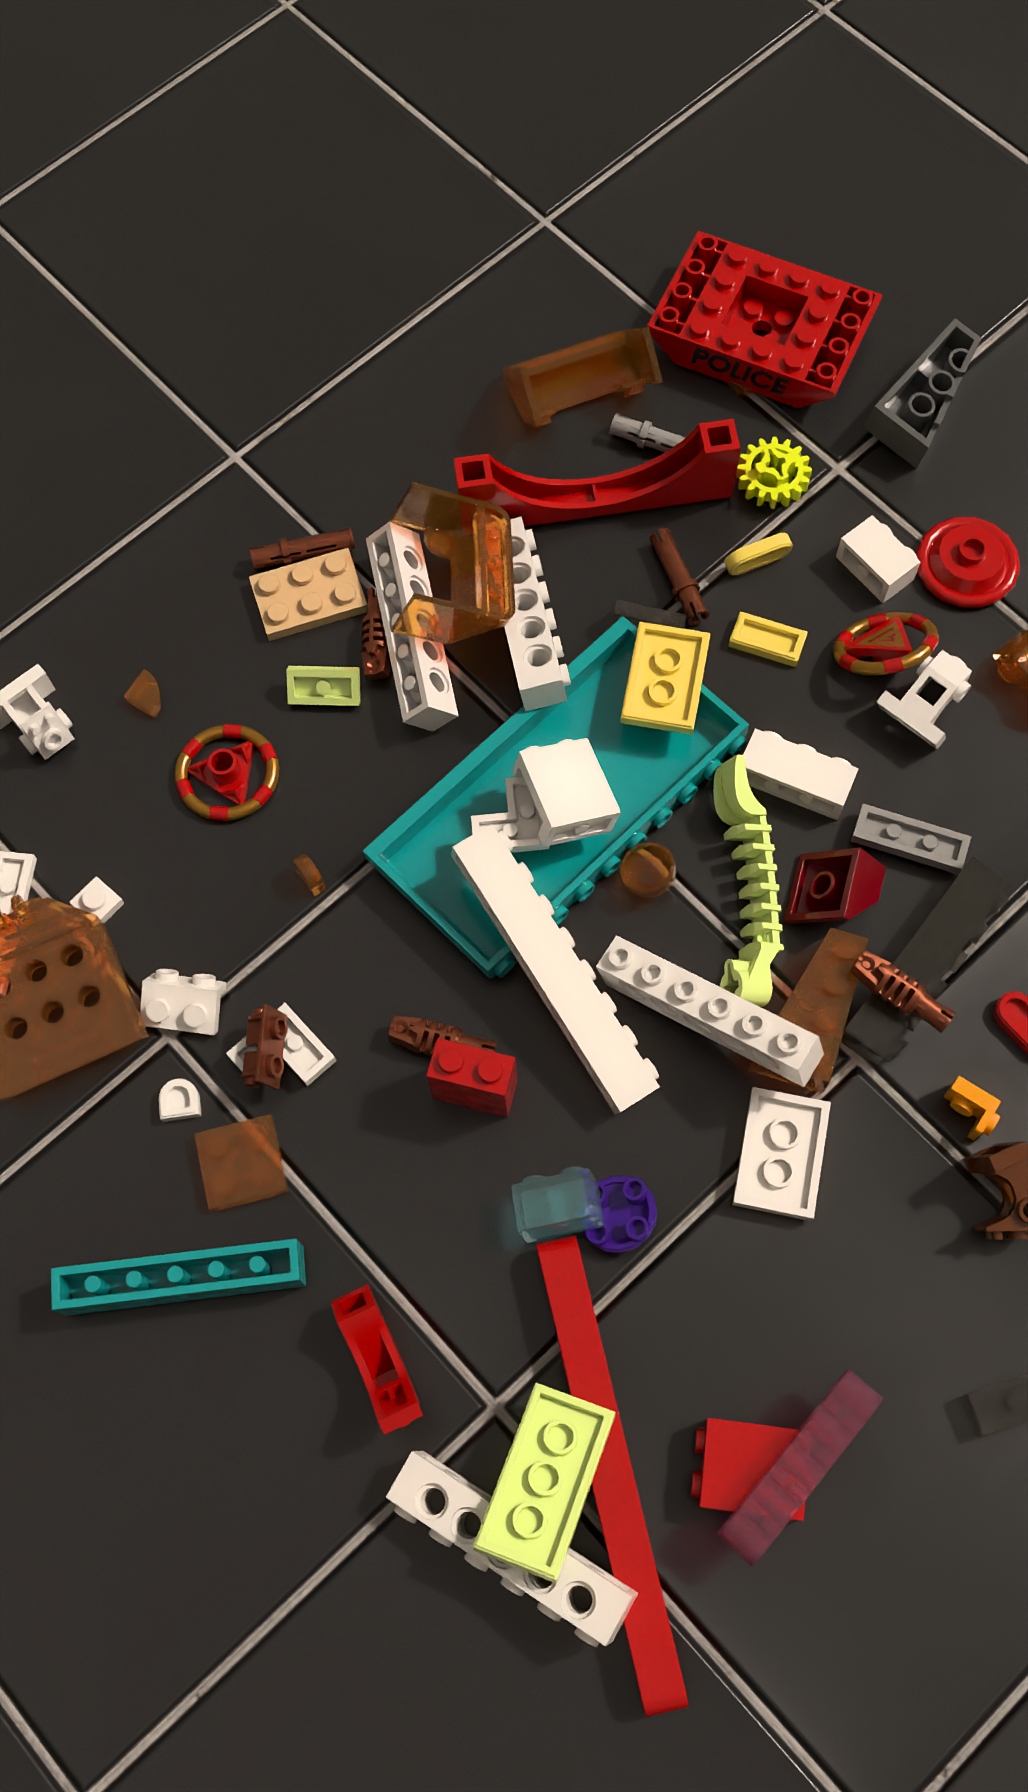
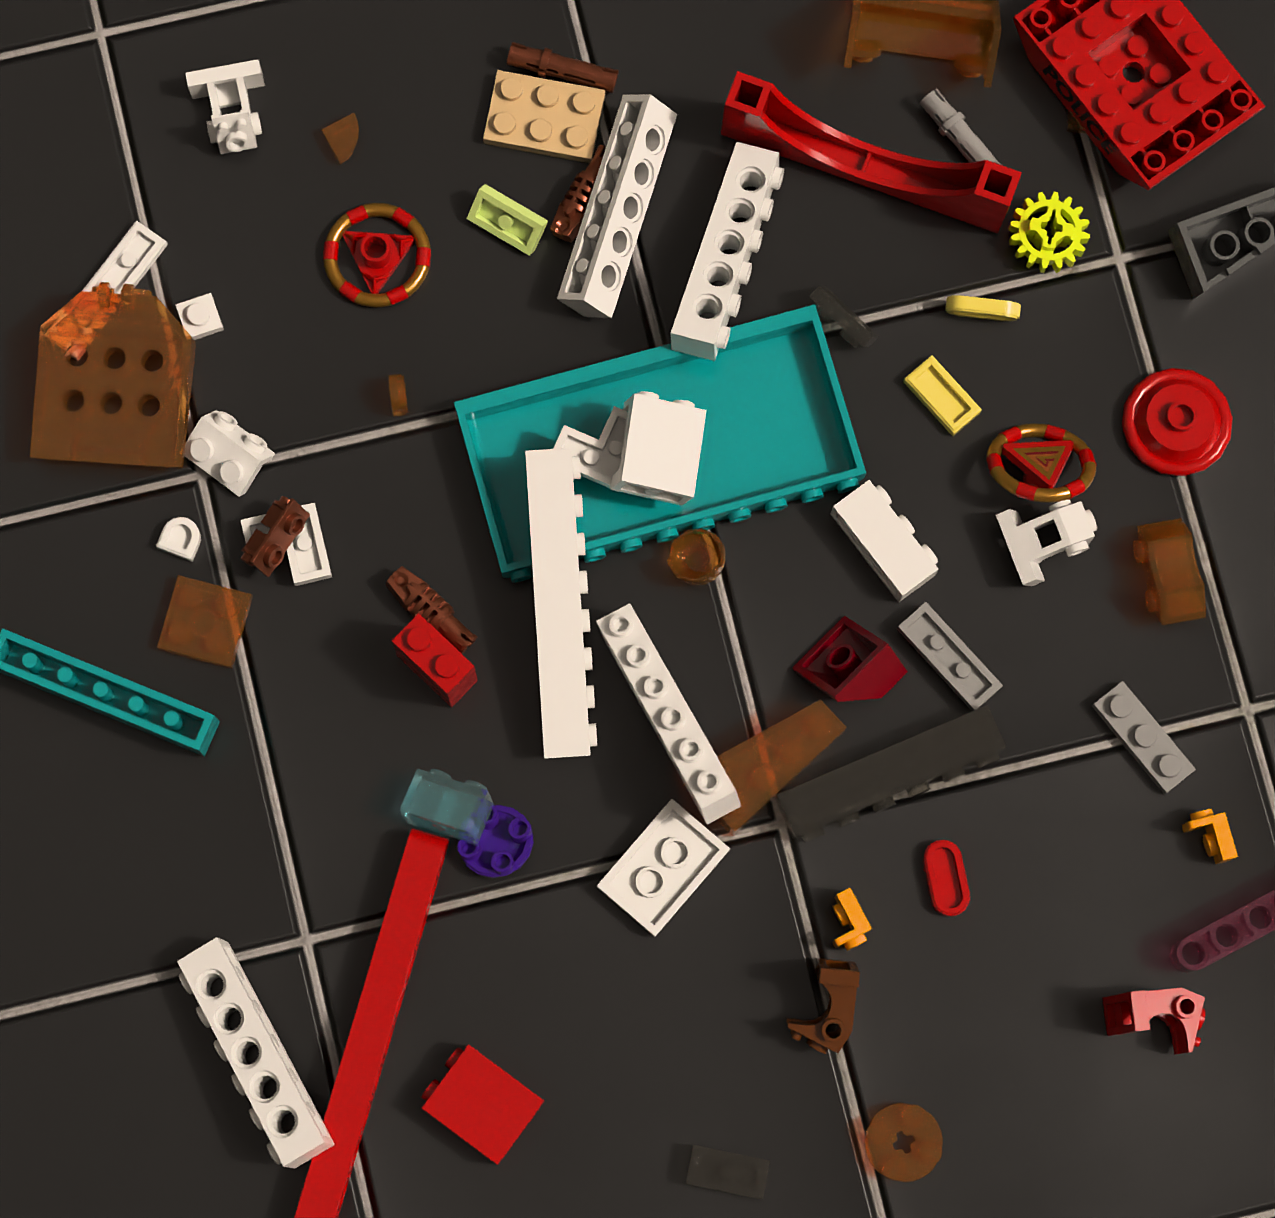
camera: 20 degrees right, 10 degrees up
(377, 1359) = (230, 848): red arch -> none
(481, 565) = (719, 168): clear orange windscreen -> none
(544, 1482) = (308, 1019): yellowish green tile -> none
(665, 678) = (816, 387): light yellow tile -> none
(684, 587) = (894, 301): copper pin -> none
(738, 807) = (723, 704): yellowish green piece -> none
(799, 1467) = (517, 1121): clear pink beam -> none
(878, 558) = (1092, 374): white brick -> none
(900, 990) = (842, 787): copper hinge -> none

